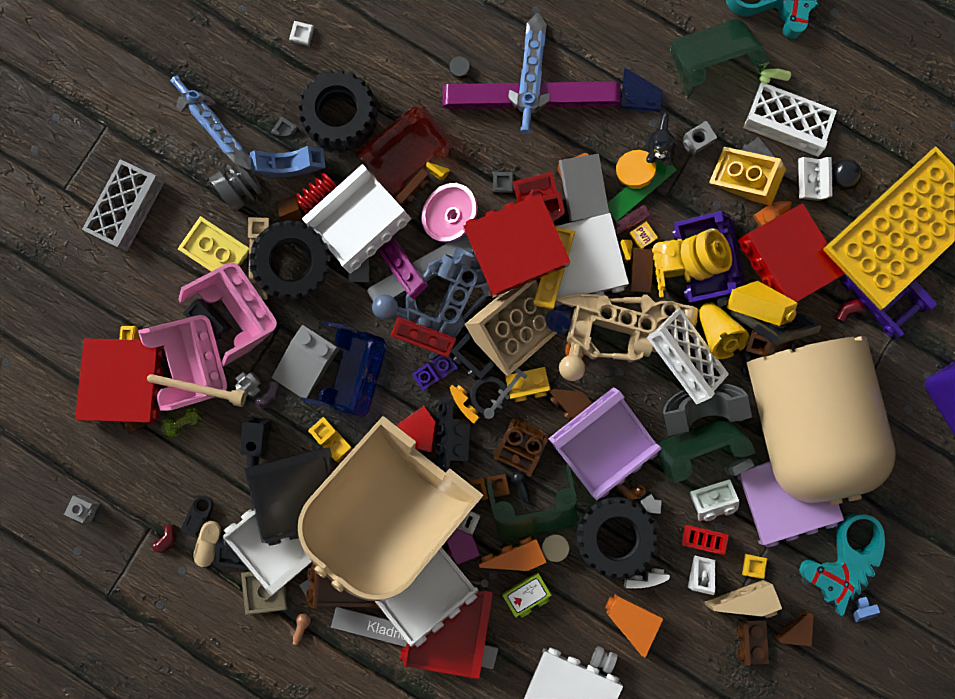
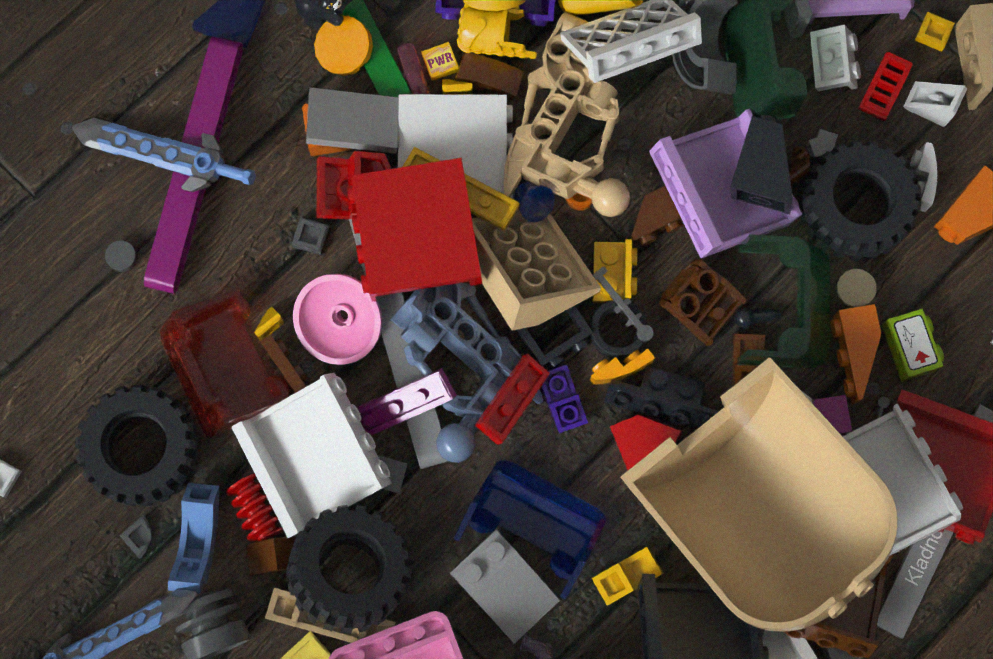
camera: 85 degrees left, 5 degrees down
(619, 465) = (763, 167): none -> black slope

